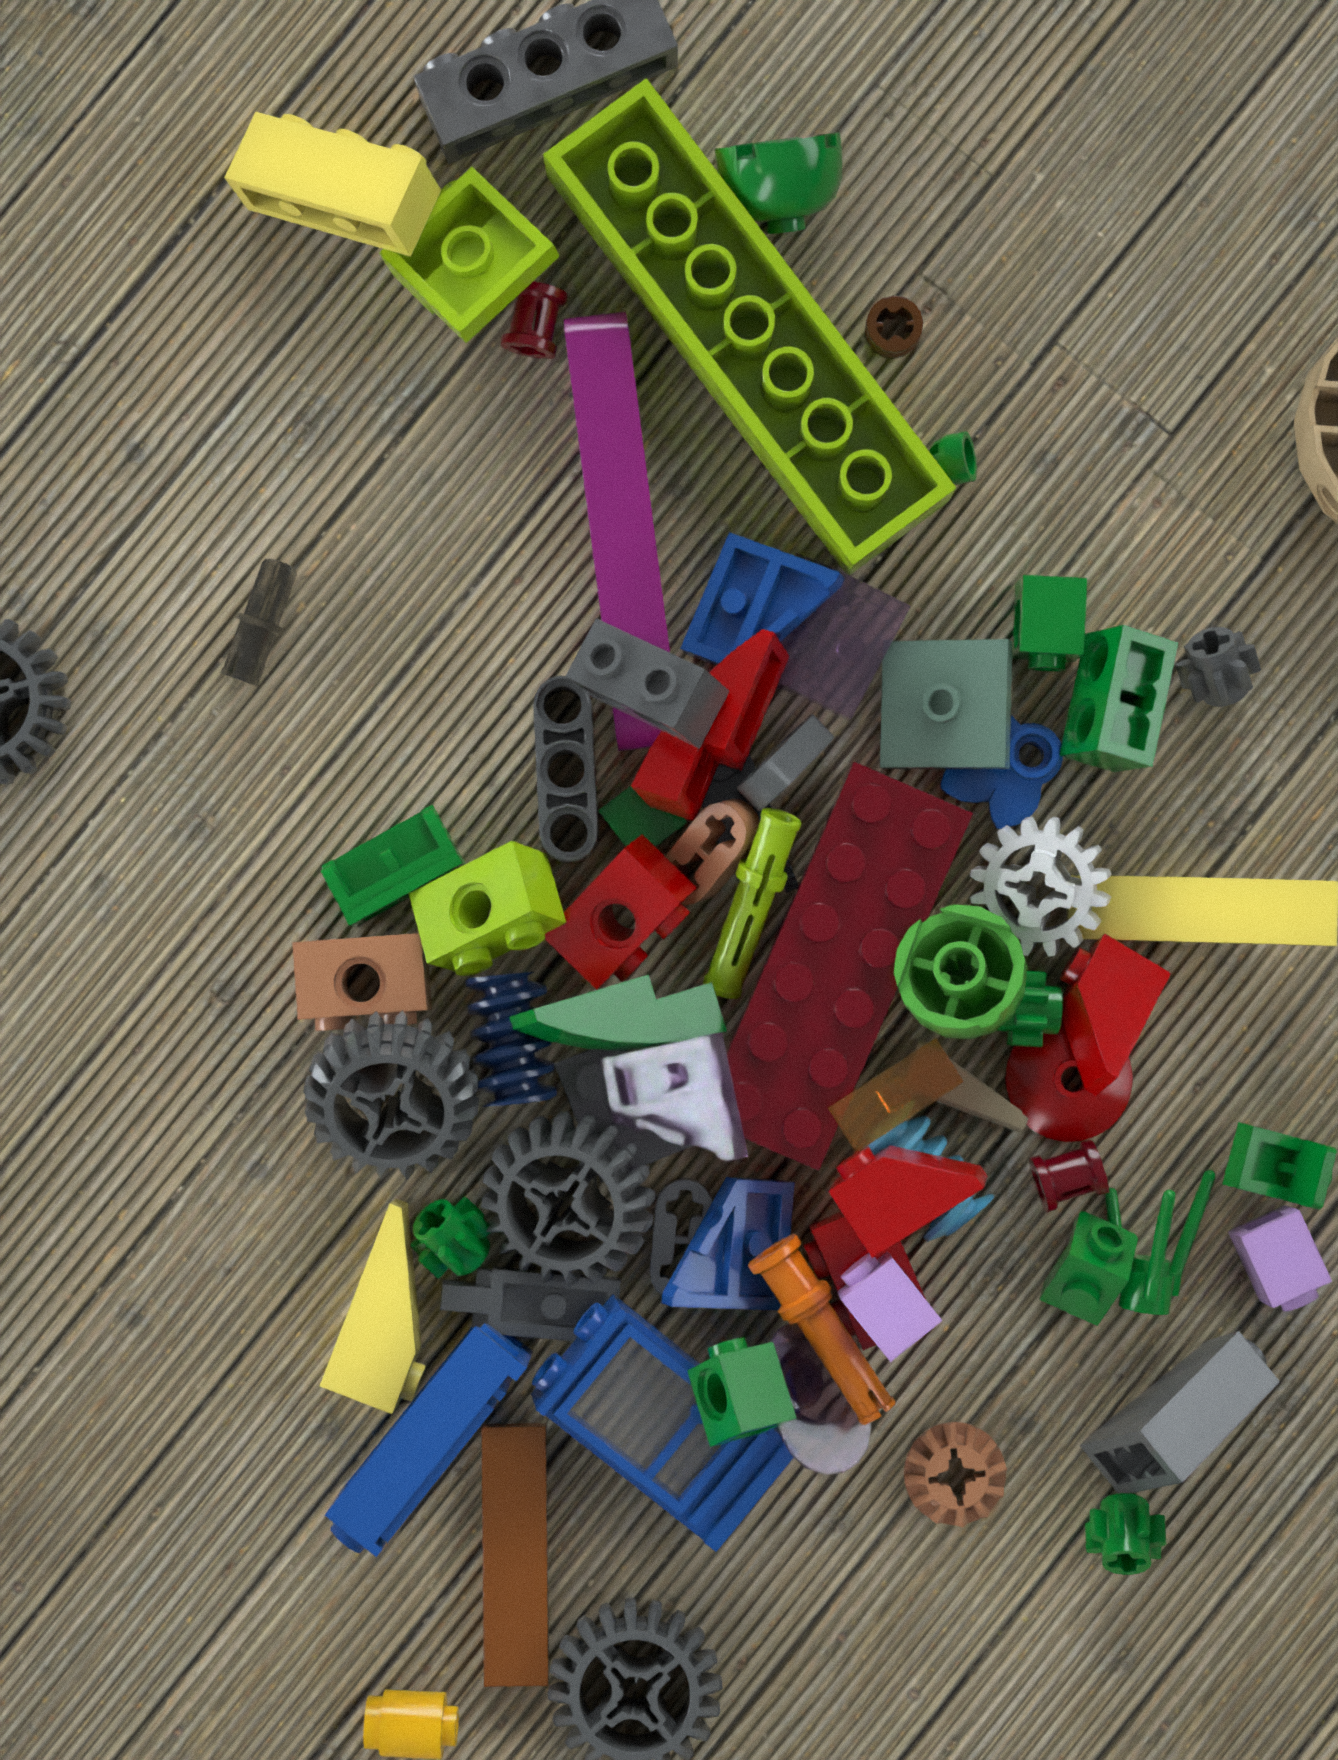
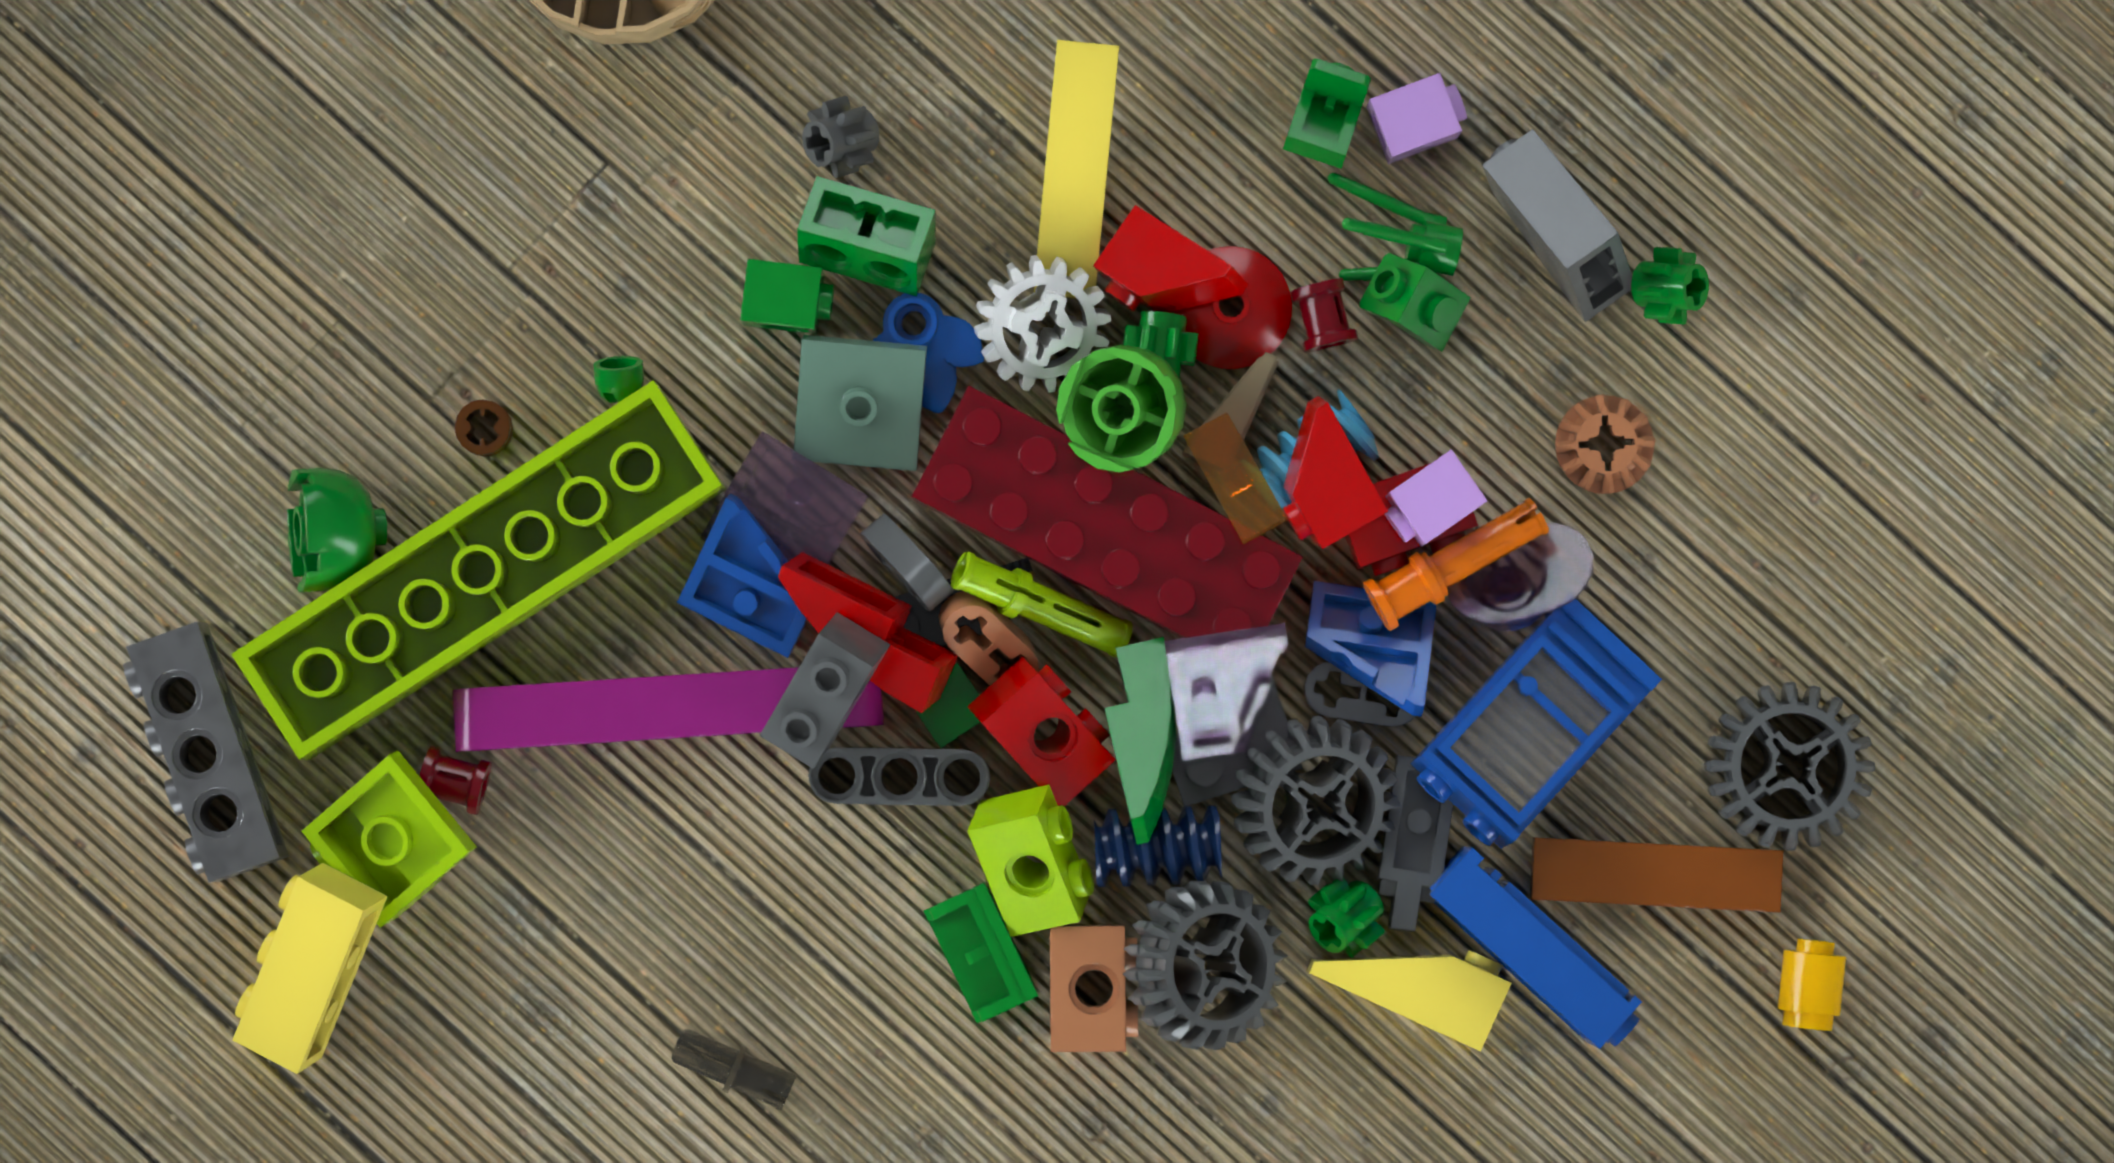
camera: 85 degrees left, 0 degrees up
(740, 1391) = (1508, 645): green brick -> none

